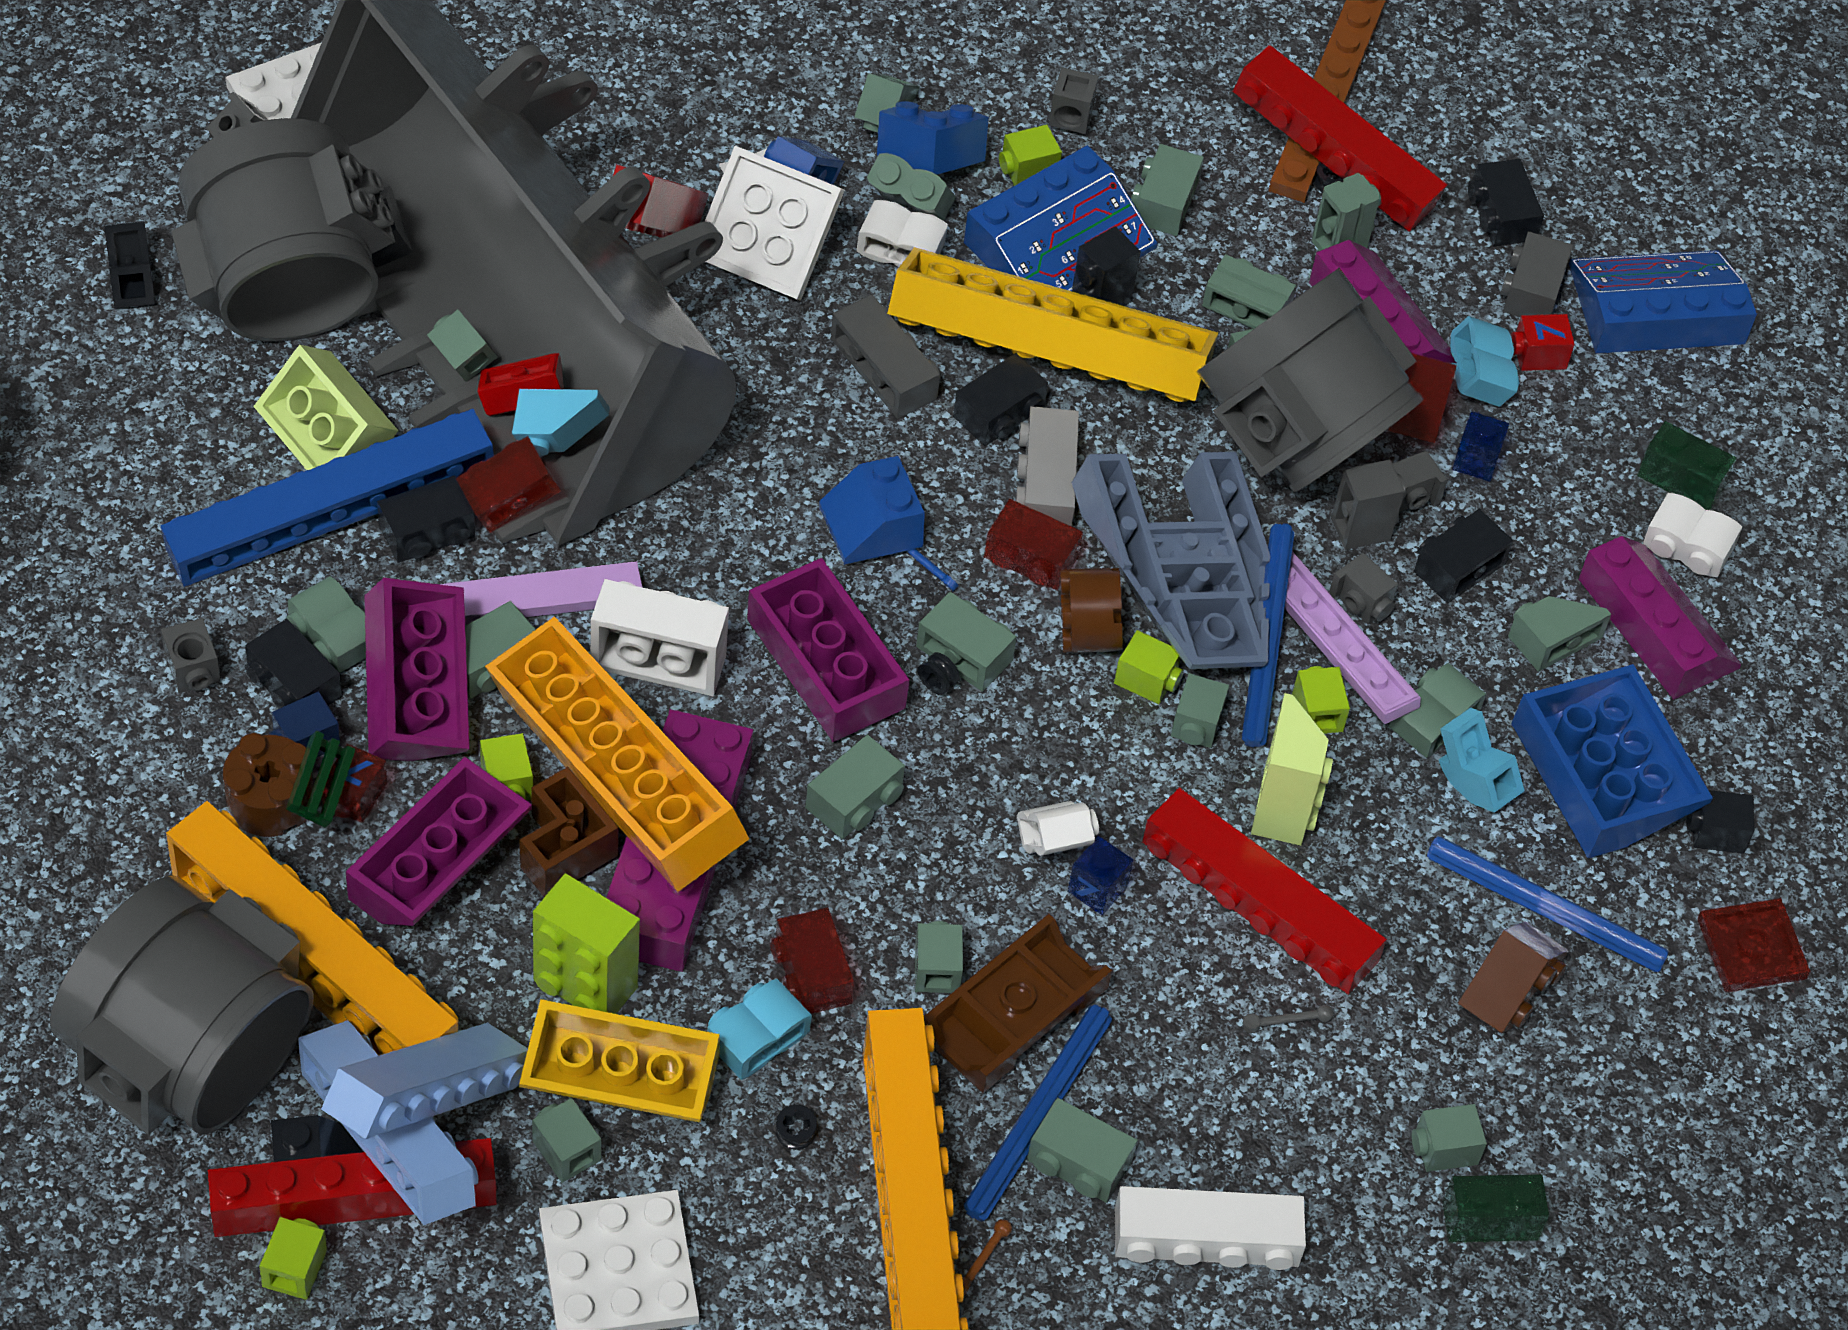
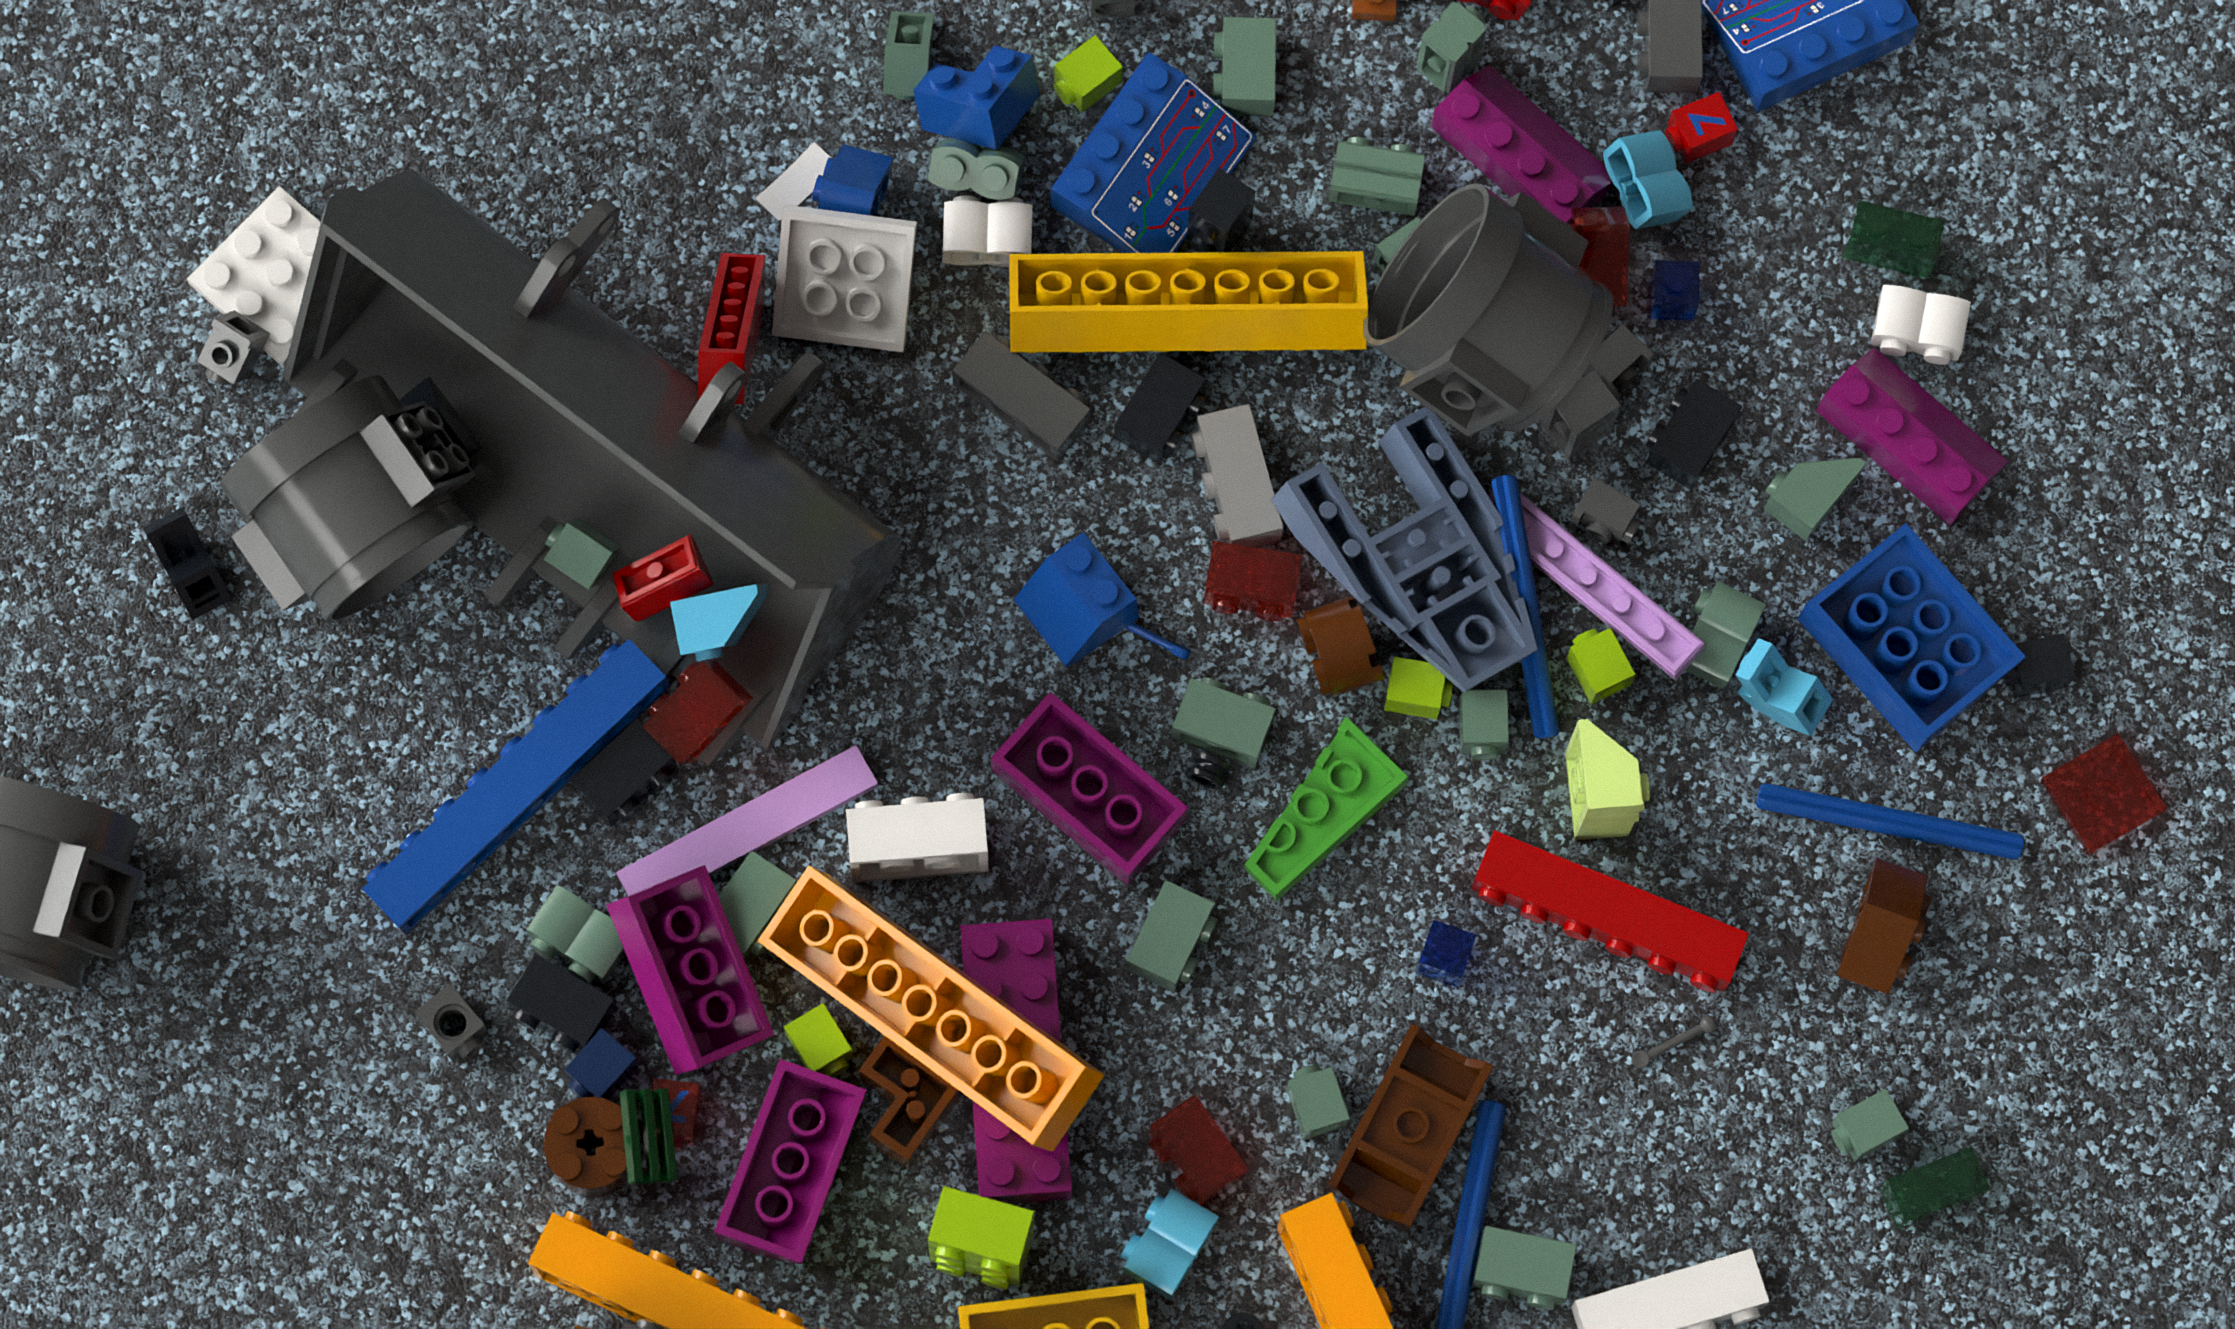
camera: 15 degrees left, 20 degrees up
(321, 409) = (470, 682): yellowish green slope -> none
(1043, 732) = (1336, 798): none -> bright green wing
(1057, 827) = (1389, 921): white brick -> none

